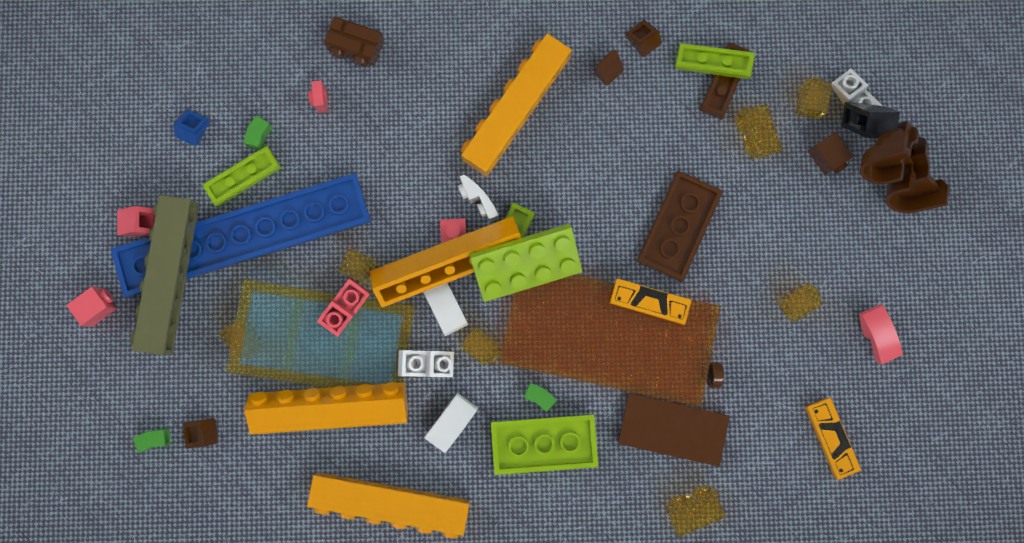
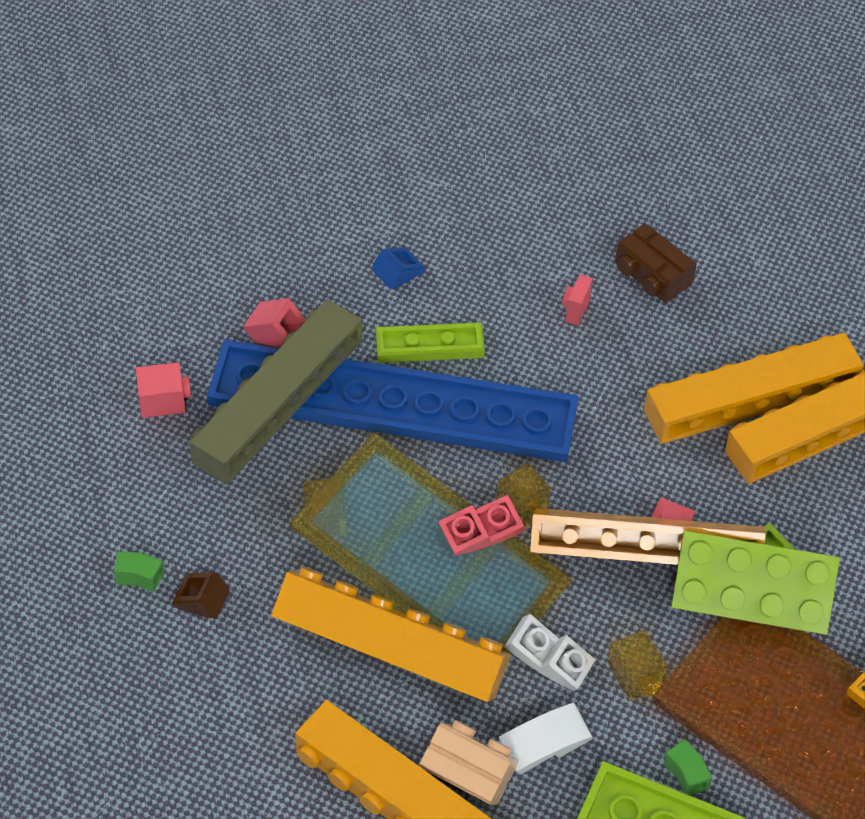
camera: 30 degrees right, 30 degrees down
(257, 133) = (477, 305): bright green piece -> none
(415, 466) = (468, 762): none -> light nougat brick
(445, 309) = (612, 596): white slope -> none
(459, 108) = (748, 387): none -> light orange brick
(474, 193) = (724, 490): white slope -> none

